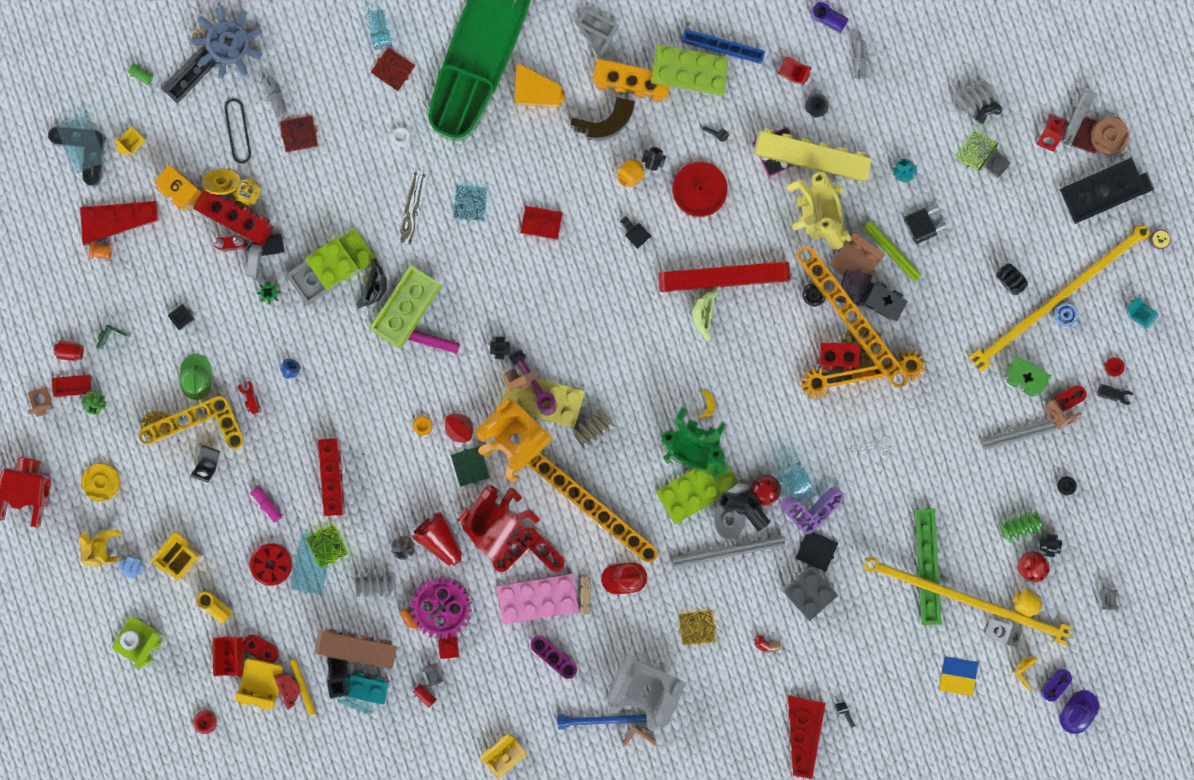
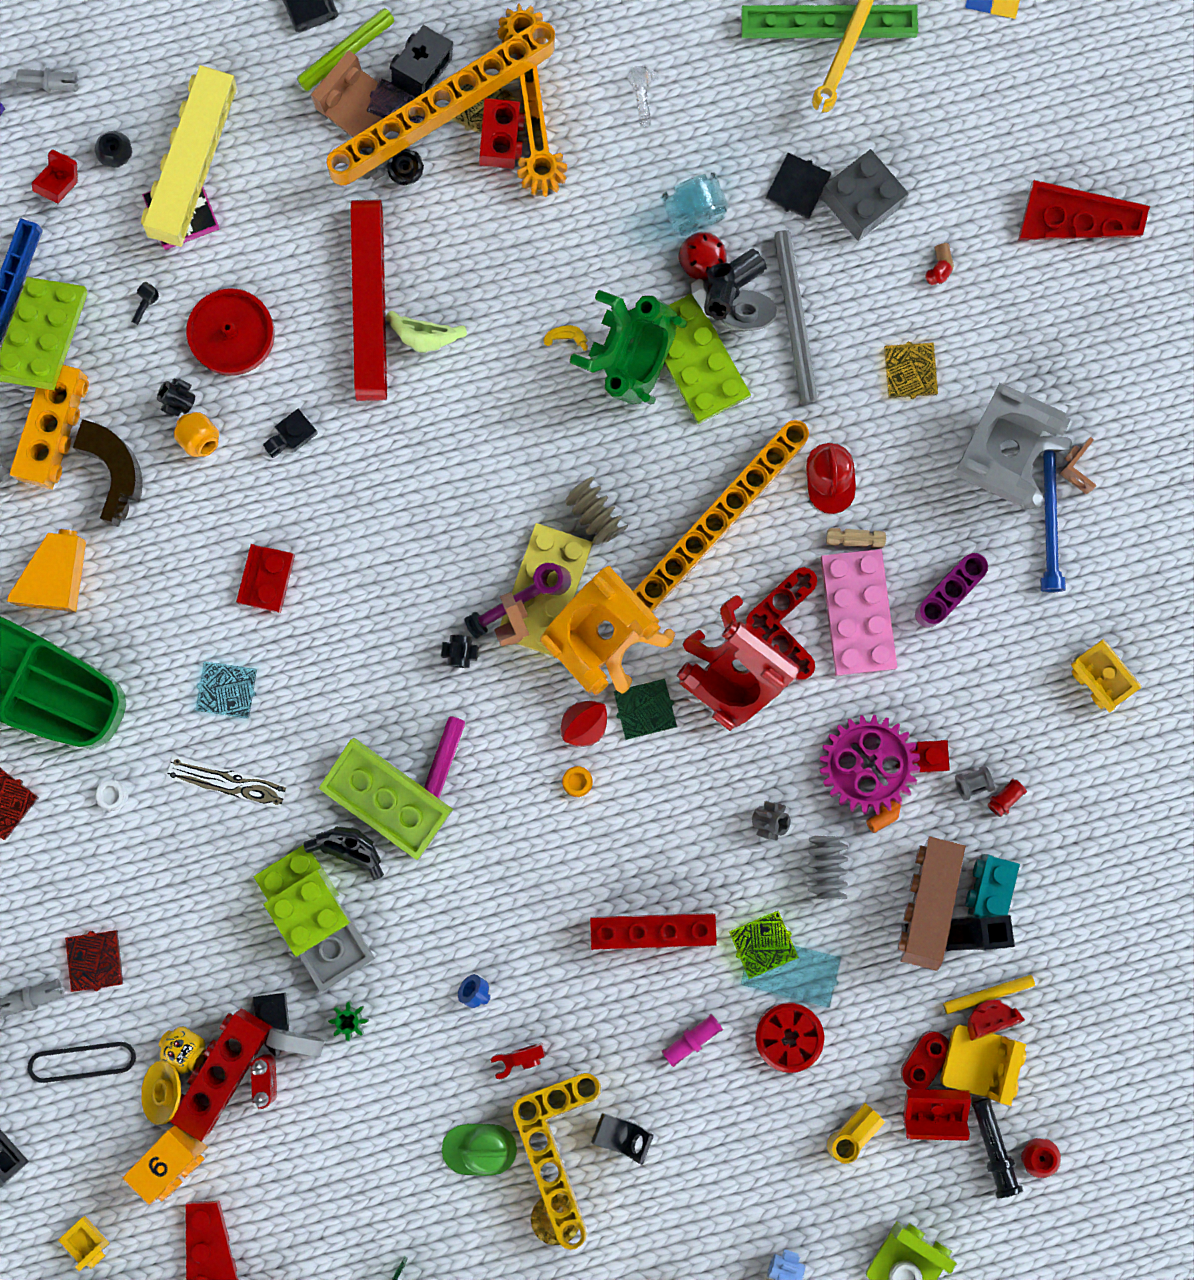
camera: 90 degrees left, 5 degrees down
(176, 557) = (772, 1193): yellow plate -> none
(181, 317) = (379, 1169): black plate -> none
(201, 696) = (1000, 1167): none -> black pin
(355, 704) = (1022, 904): clear light blue piece -> none
(438, 539) = (759, 763): red cone -> none
(821, 210) = (275, 143): light yellow piece -> none
(830, 501) = (749, 190): medium lavender beam -> none
(843, 709) = (1042, 157): black hand -> none
(904, 170) = (222, 22): teal gear -> none

